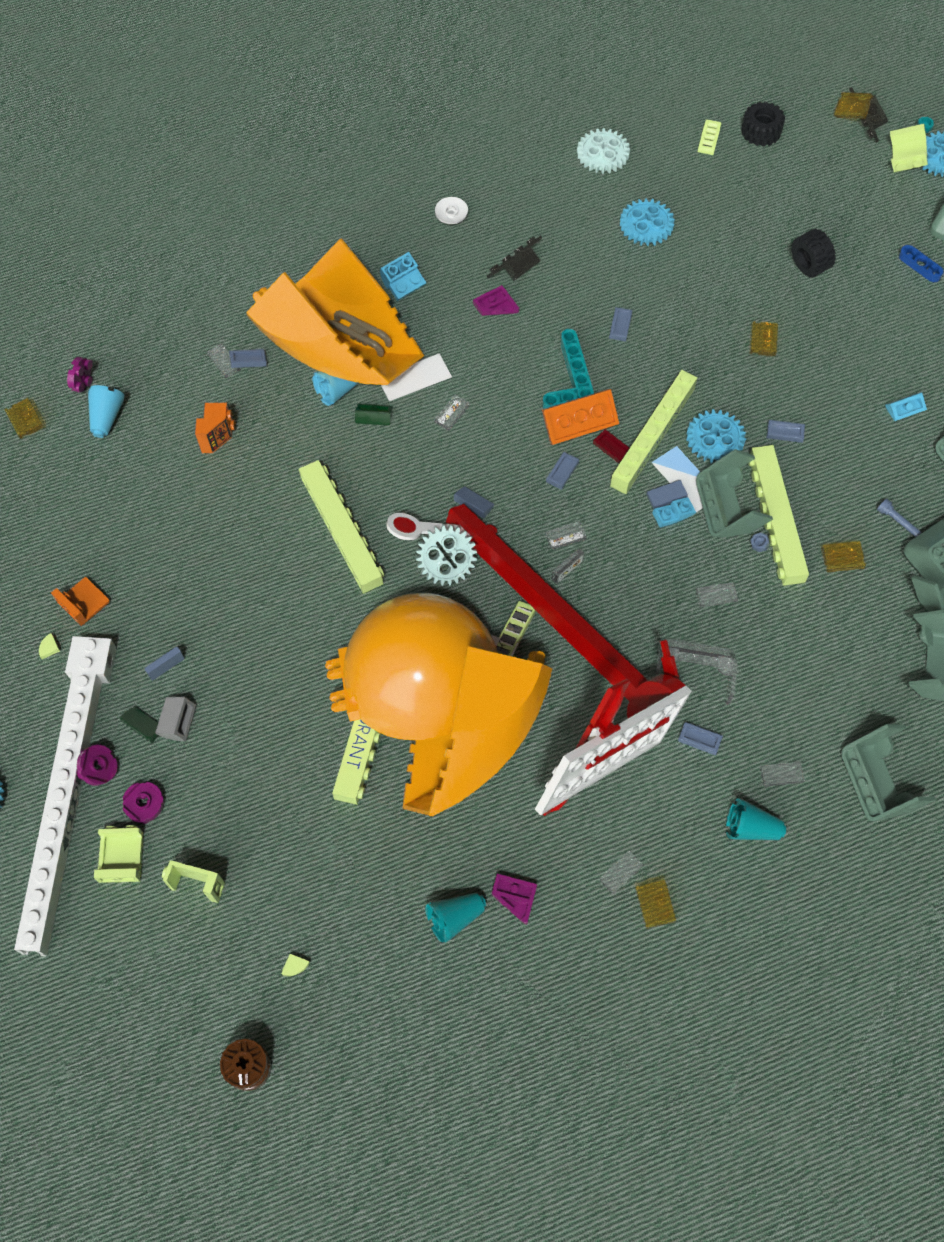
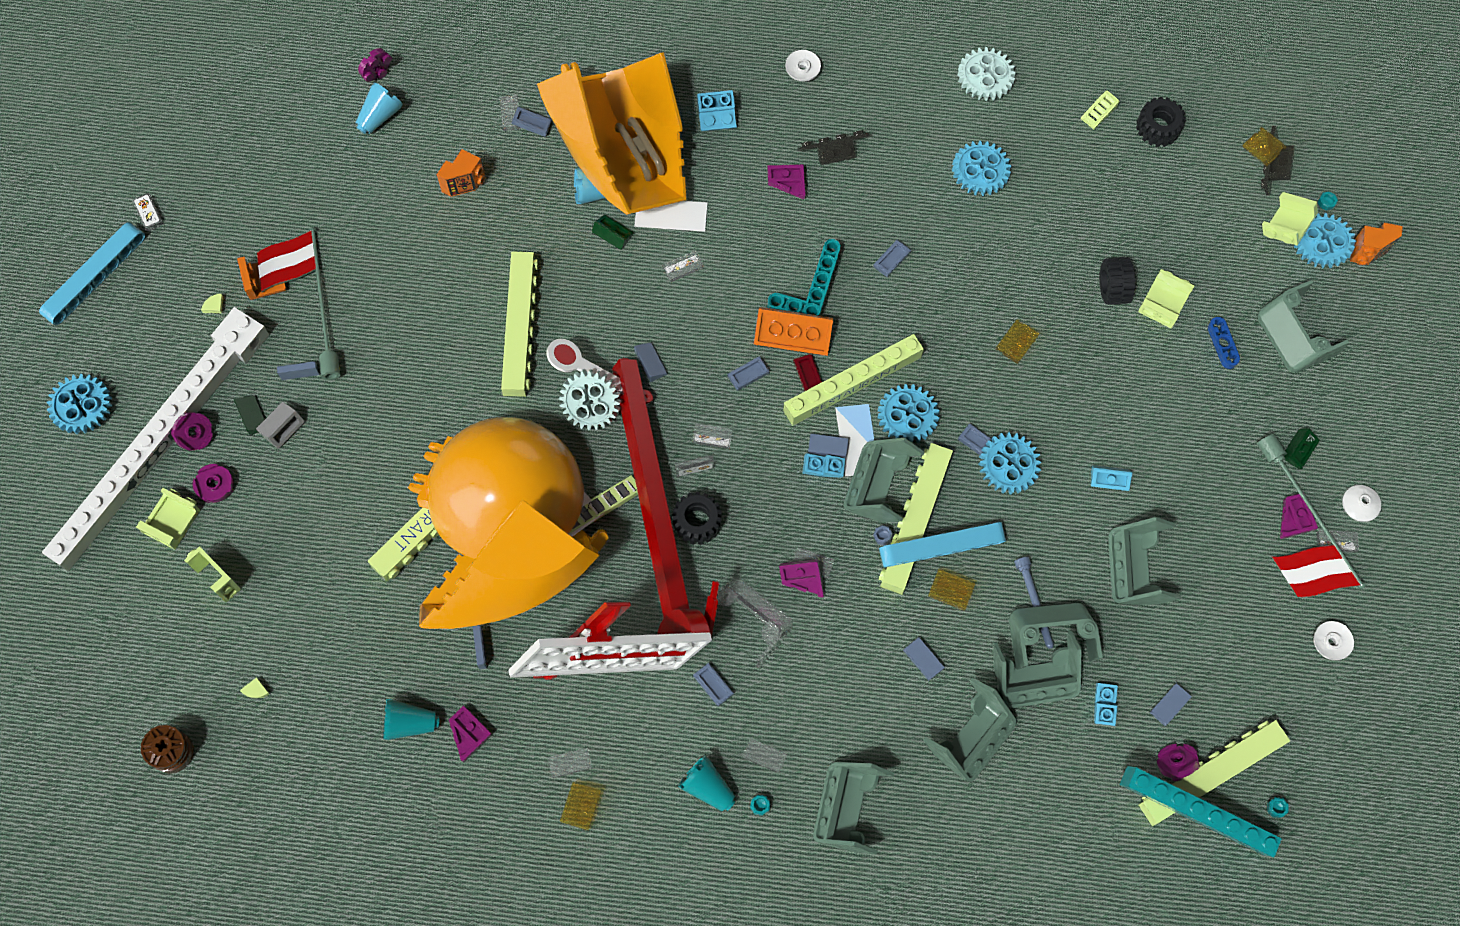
camera: 25 degrees right, 5 degrees up
(24, 418) = (307, 81): clear yellow plate -> none
(101, 573) = (290, 262): none -> flag
(479, 815) = (479, 647): none -> sand blue tile
(602, 593) = (697, 503): none -> black tyre
(717, 608) = (803, 576): none -> magenta wing
(806, 817) = (760, 805): none -> teal tile
(815, 522) = (942, 544): none -> medium azure beam
(826, 431) = (1020, 451): none -> medium azure gear
(855, 251) = (1166, 298): none -> yellowish green panel
(858, 624) = (923, 659): none -> sand blue tile

